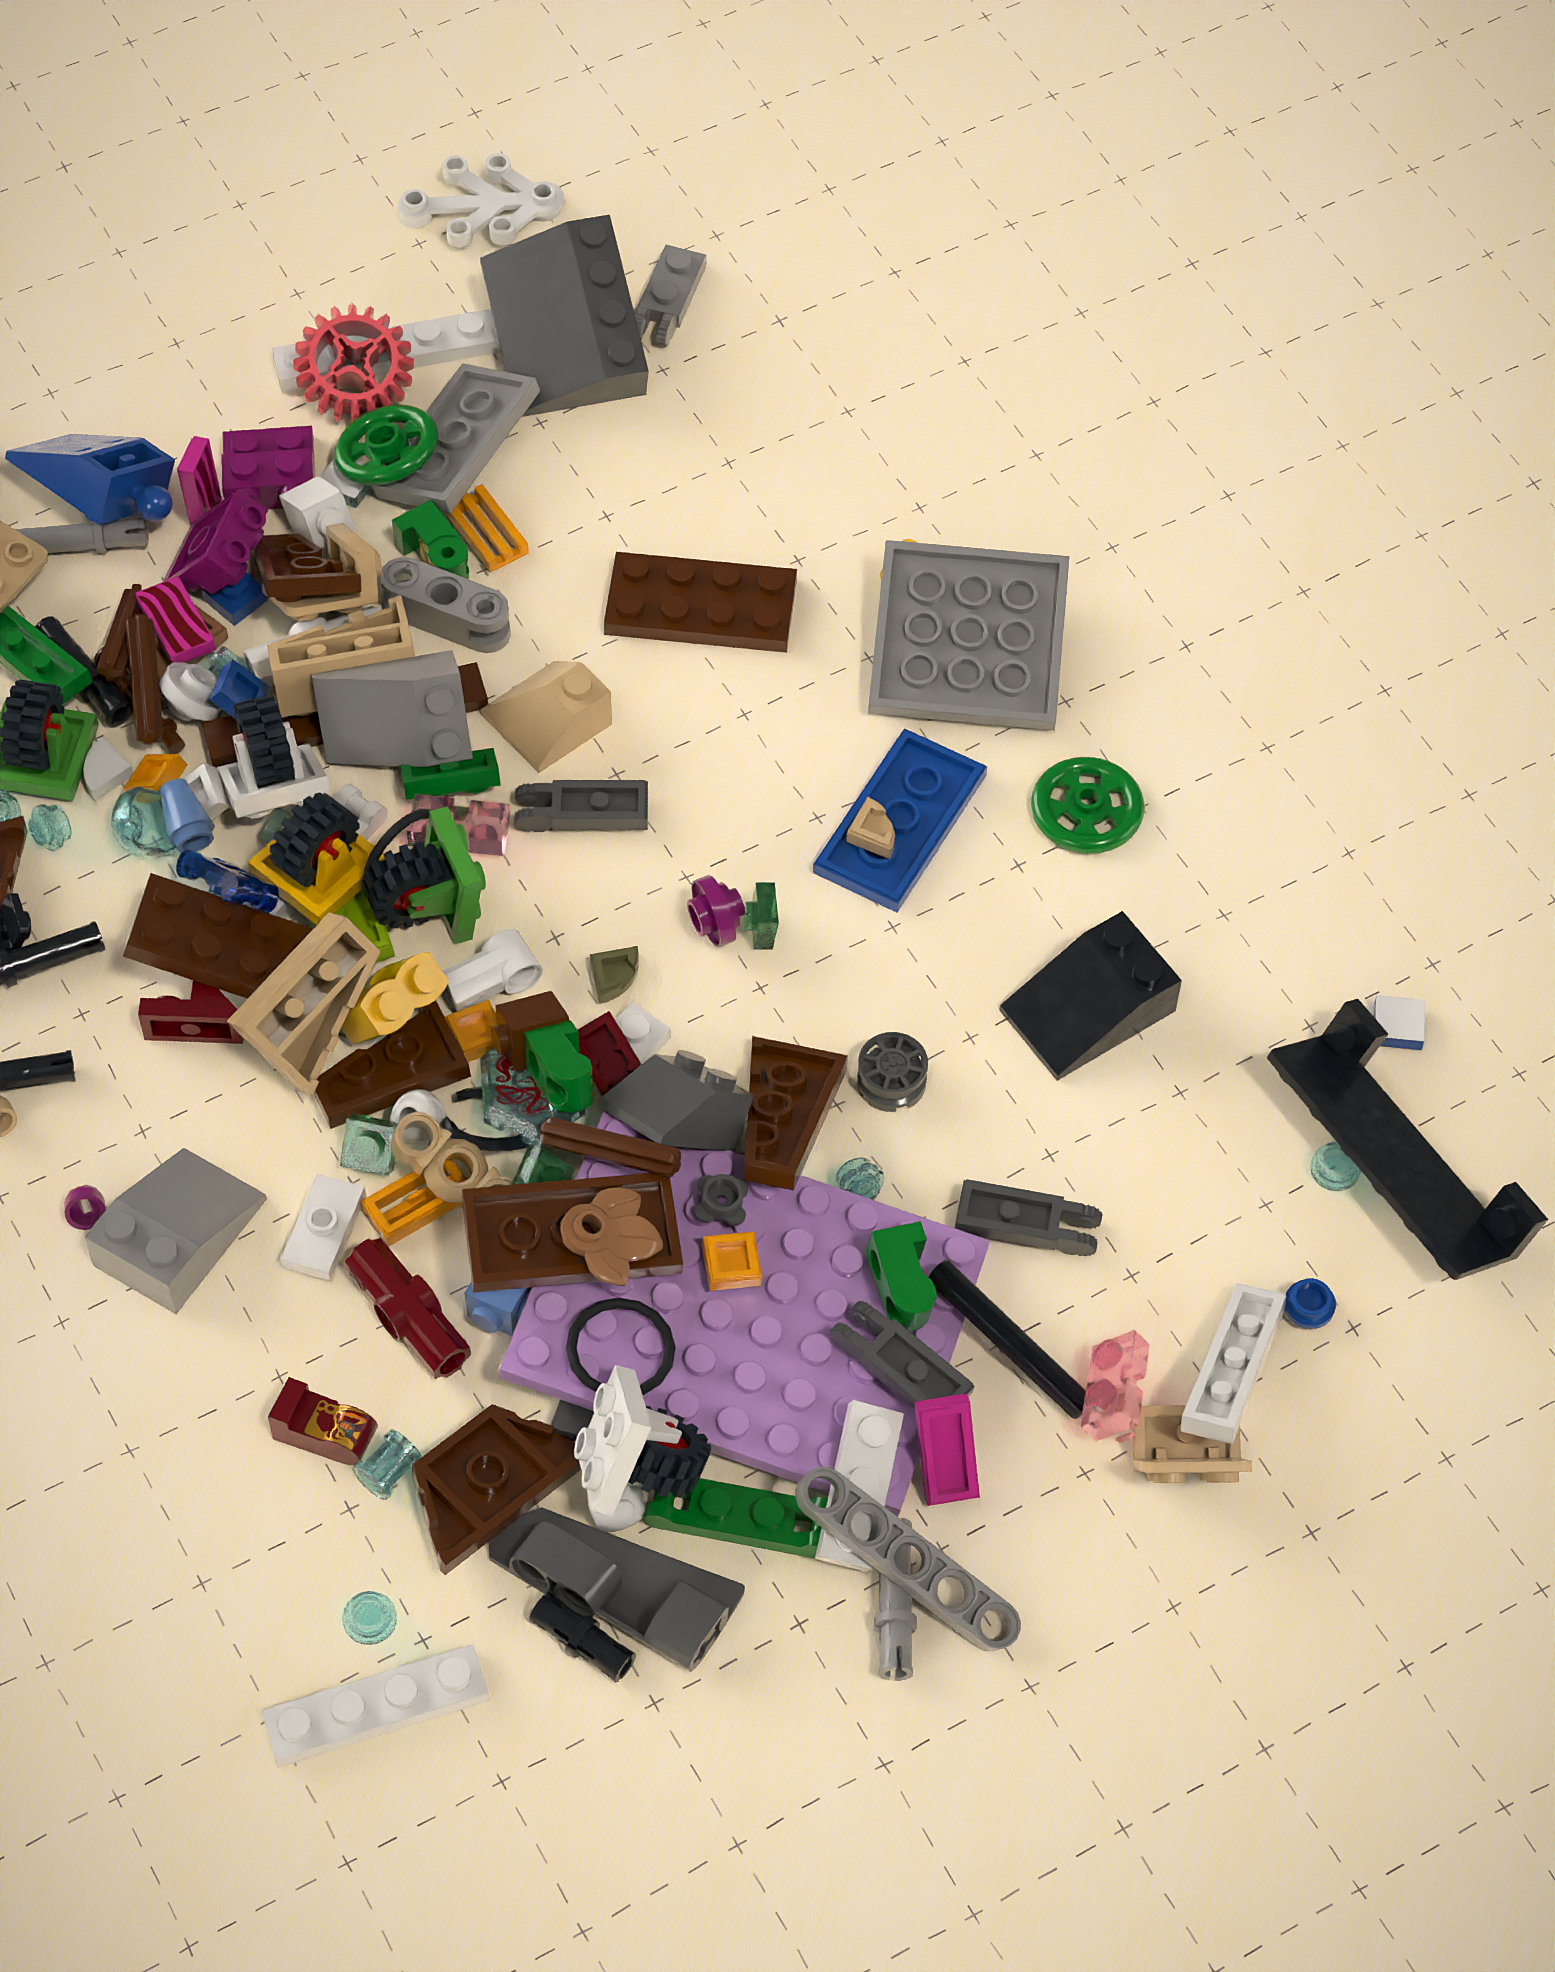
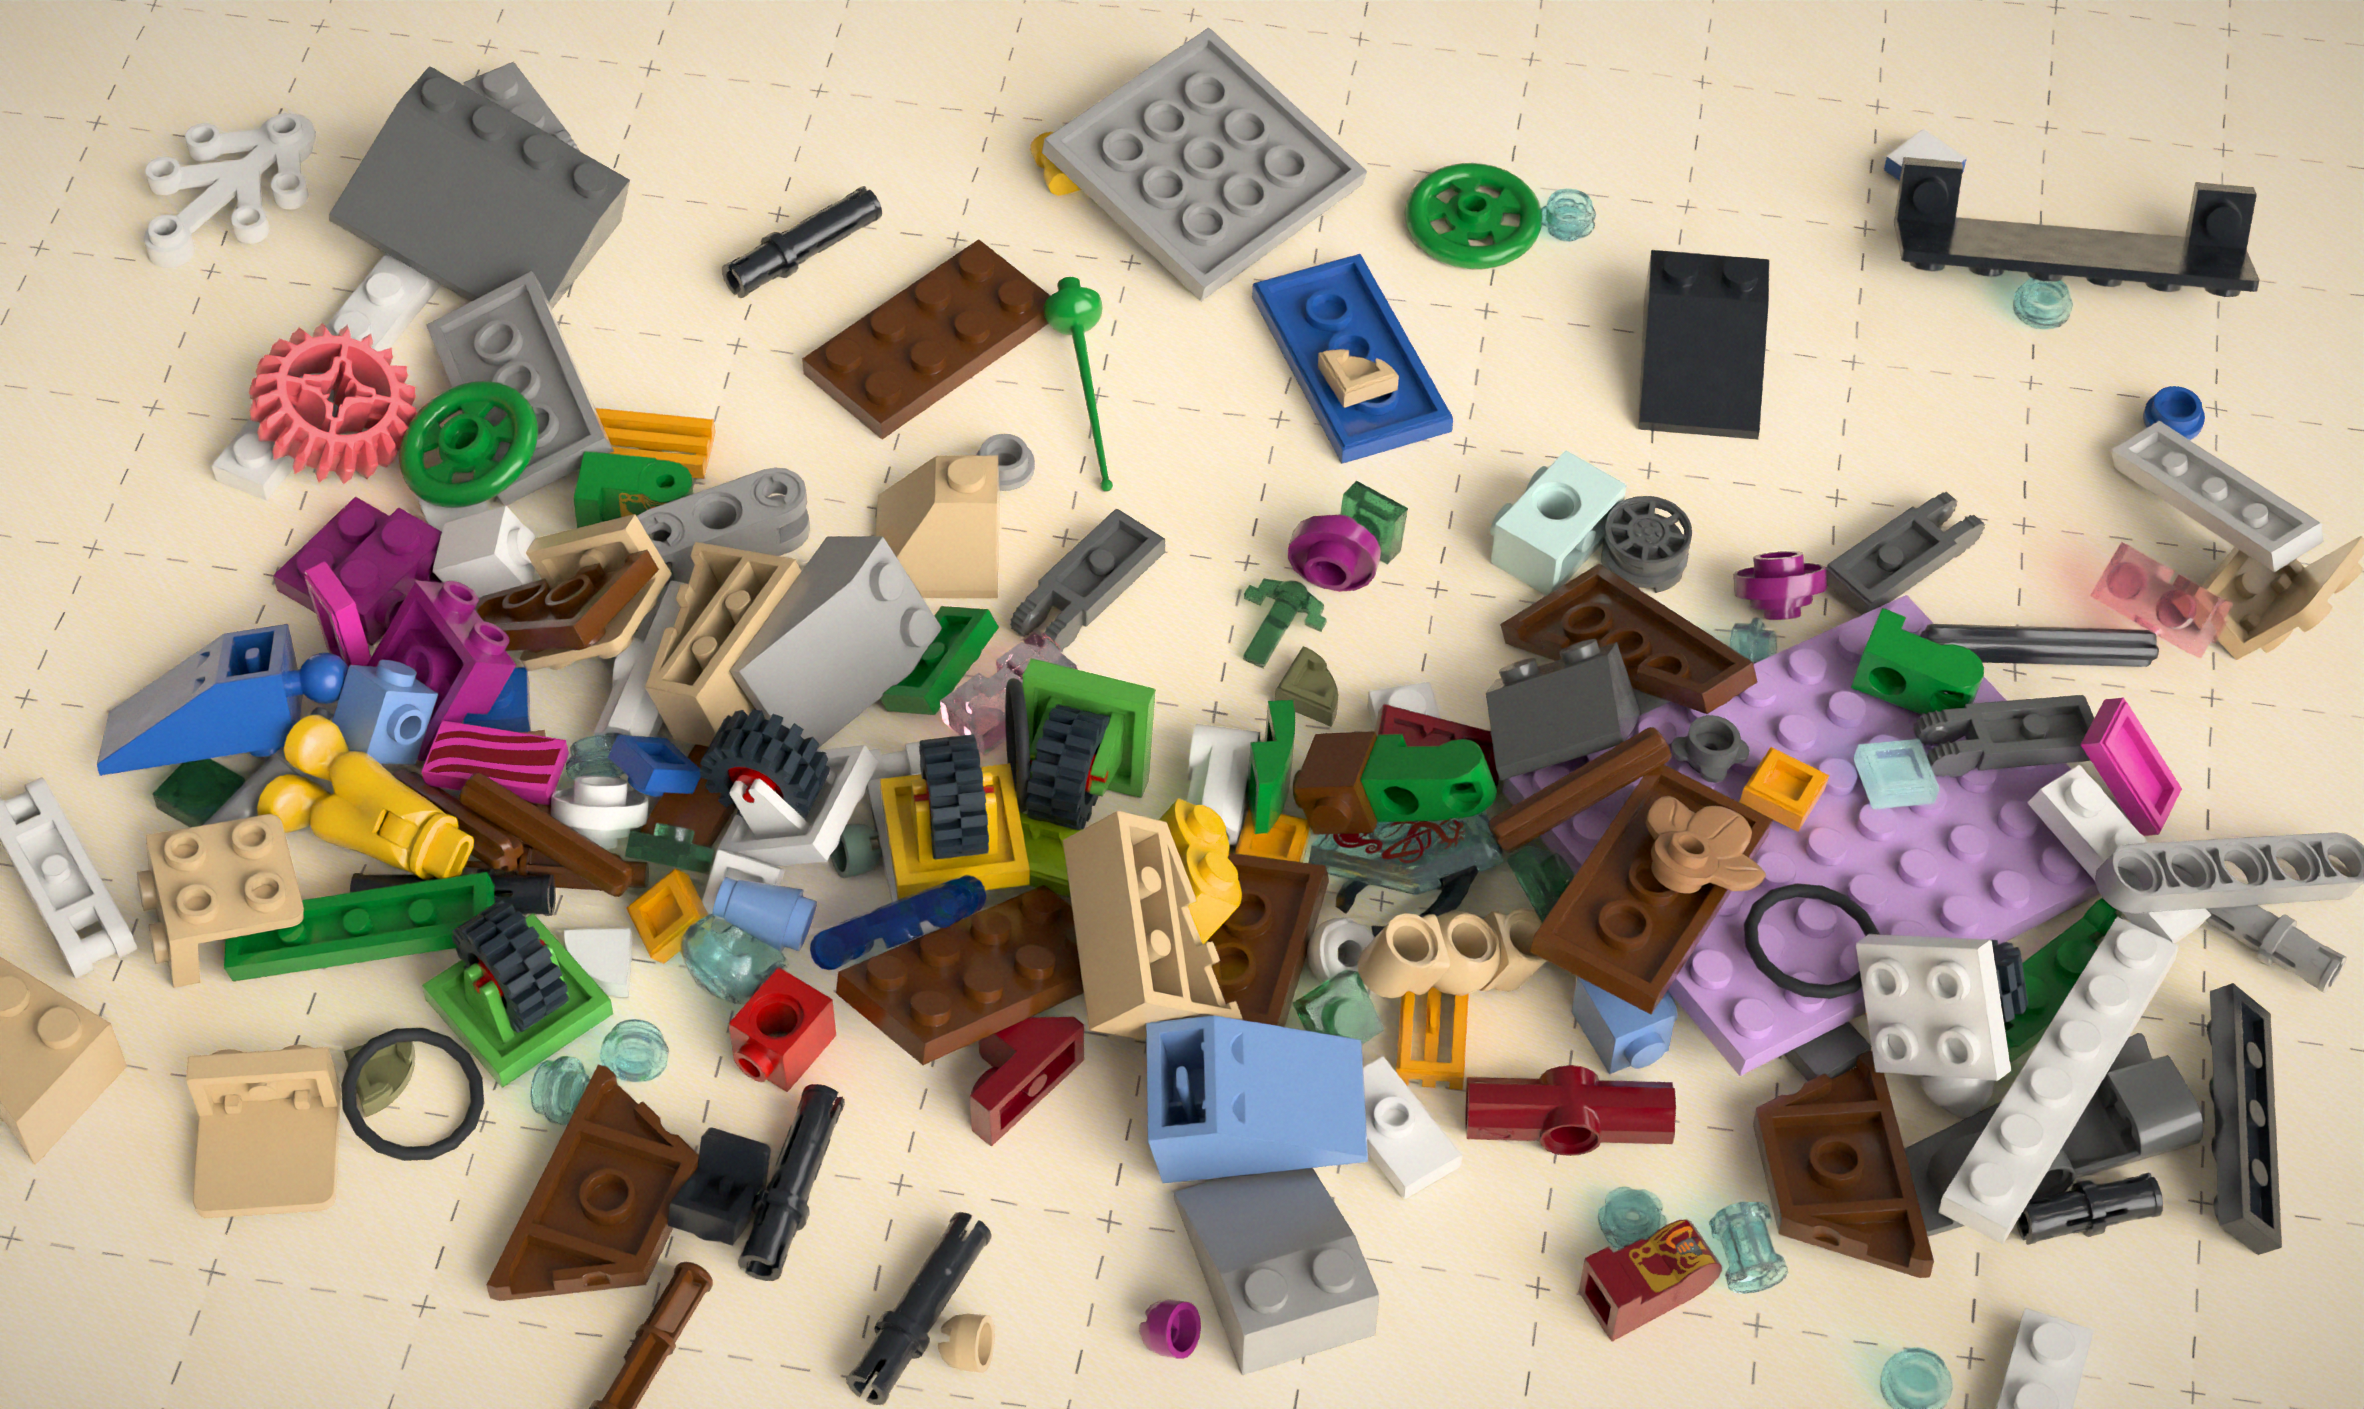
camera: 50 degrees left, 5 degrees down
(50, 510) = (196, 791): none -> clear green plate
(89, 581) = (368, 806): none -> yellow piece
(112, 867) = (782, 1006): none -> red brick
(159, 547) = (384, 711): none -> medium blue brick
(188, 741) = (670, 847): none -> clear green plate
(261, 1135) = (1251, 1098): none -> medium blue slope
(365, 1377) = (1624, 1231): none -> clear light blue plate
(510, 984) = (1271, 766): none -> green slope
(635, 694) = (1014, 460): none -> light grey plate
(648, 1553) = (2058, 1081): none -> white plate
(669, 916) = (1290, 599): none -> clear green piece
(707, 487) = (784, 251): none -> black pin
(726, 1685) = (2244, 1120): none -> black plate
(783, 655) = (1074, 312): none -> green sword
(808, 1317) = (1896, 774): none -> clear light blue tile
(842, 1029) = (1555, 522): none -> light aqua brick
(924, 1162) = (1780, 584): none -> magenta plate
(1138, 844) = (1568, 214): none -> clear light blue plate

